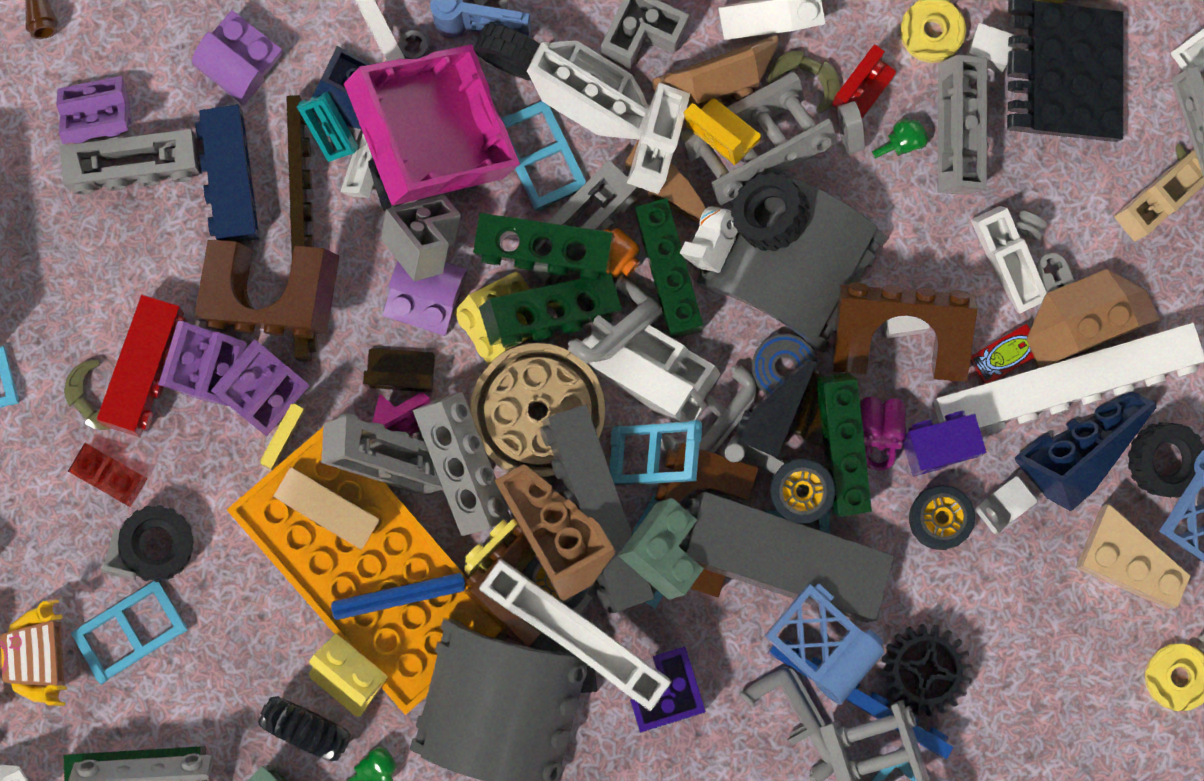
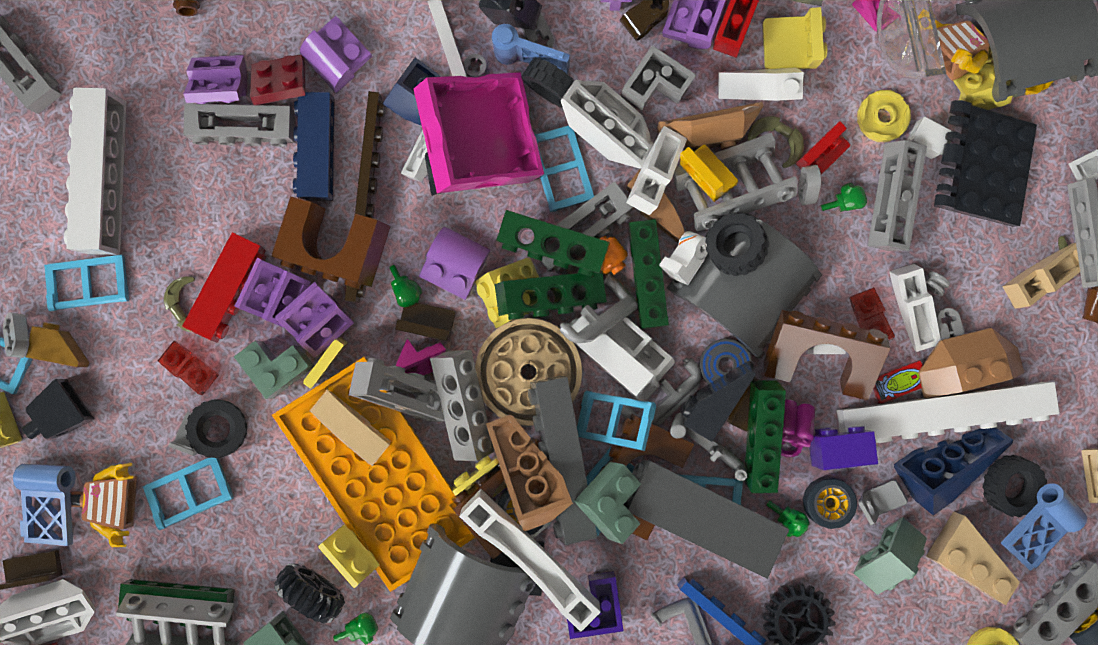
camera: 10 degrees right, 5 degrees up
(170, 98) = (277, 79): none -> dark red plate
(217, 464) = (270, 373): none -> sand green brick
(332, 125) = (400, 120): teal tile -> none
(367, 334) = (405, 290): none -> green piece
(398, 596) = (397, 502): blue axle -> none
(421, 235) = (457, 218): light grey brick -> none
(806, 508) = (727, 484): wheel -> none
(847, 661) = (736, 612): medium blue piece -> none
(900, 545) = (792, 519): none -> green piece
(955, 273) = (870, 312): none -> clear red slope
(1029, 572) = (893, 558): none -> sand green brick

